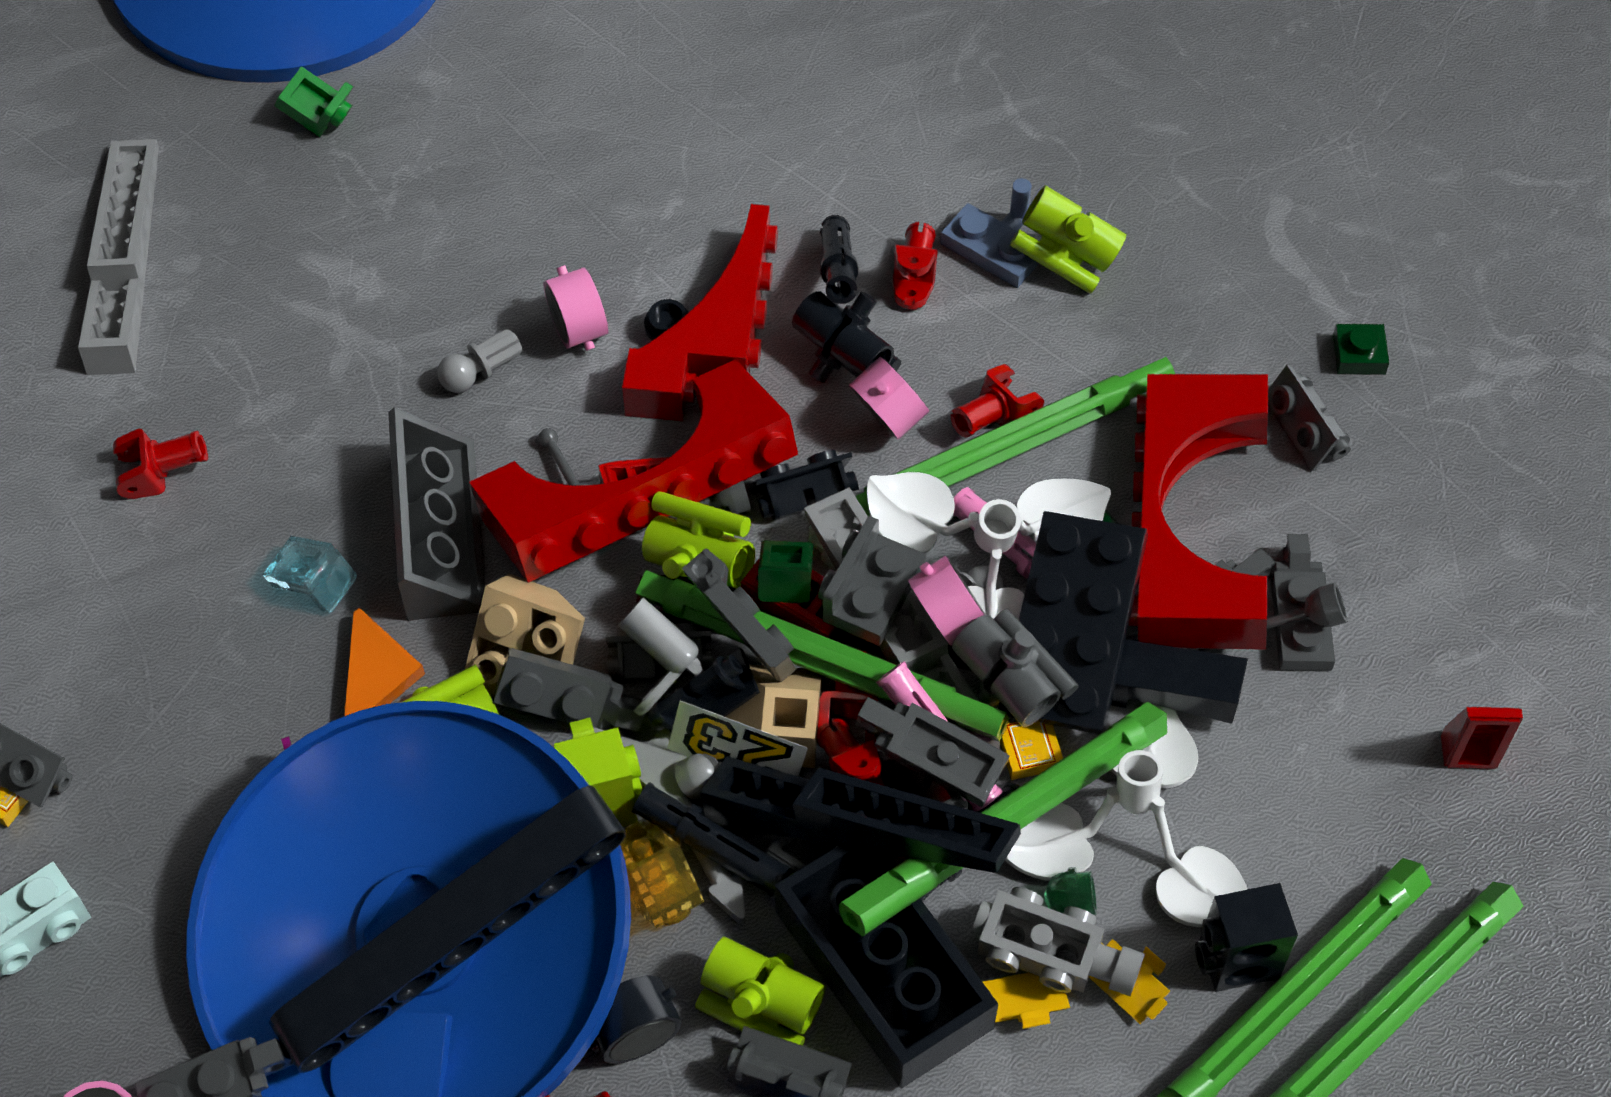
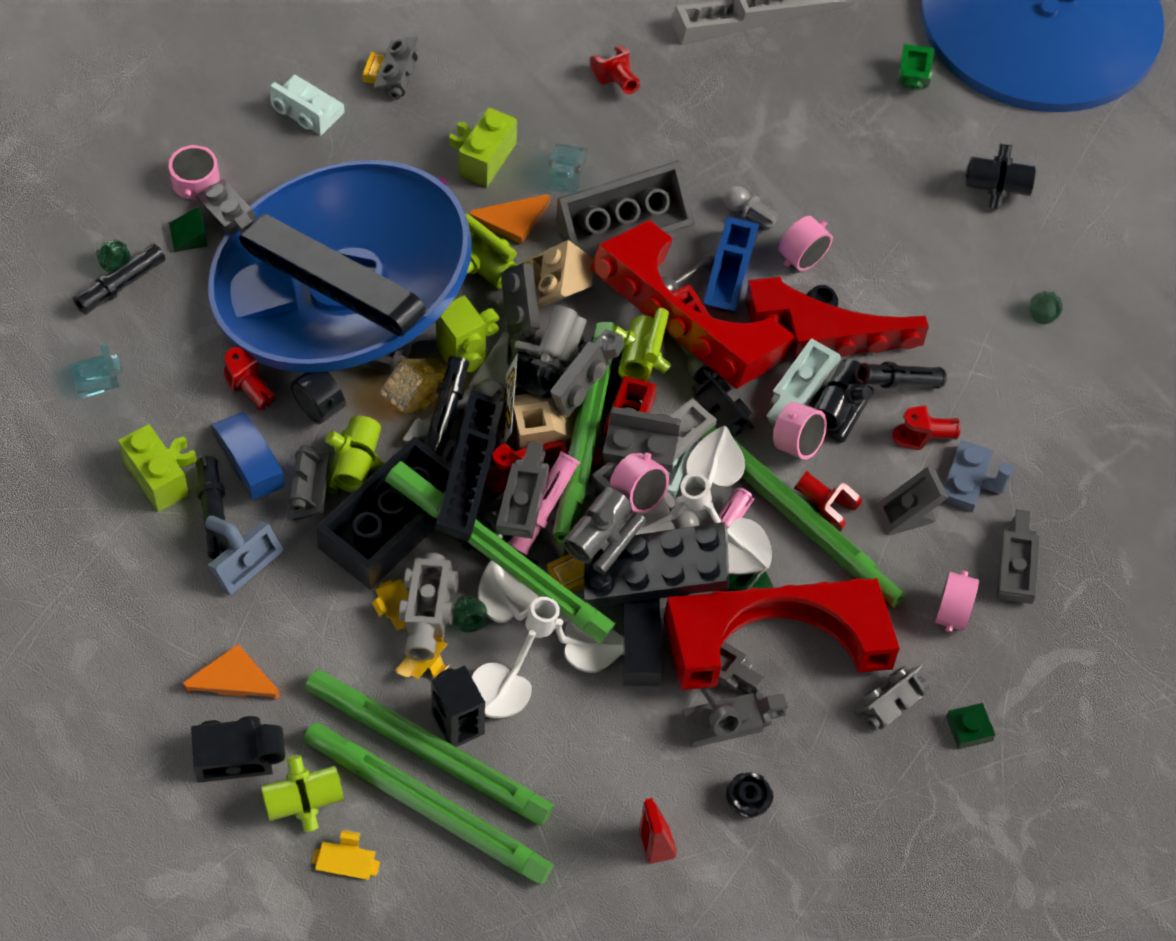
camera: 70 degrees right, 0 degrees up
(232, 670) = (485, 147): none -> lime brick
(545, 62) = (1000, 176): none -> black pin
(573, 409) = (731, 264): none -> blue slope
(761, 84) = (1045, 307): none -> clear green plate
(785, 571) = (637, 392): dark green slope -> none
(807, 375) = (803, 377): none -> light aqua hinge
(1030, 307) = (912, 502): none -> dark grey slope
(1068, 239) = (980, 511): lime pin -> none
(1146, 226) = (1018, 561): none -> dark grey hinge
(1194, 302) = (956, 601): none -> bright pink piece
(1426, 602) = (749, 784): none -> black plate

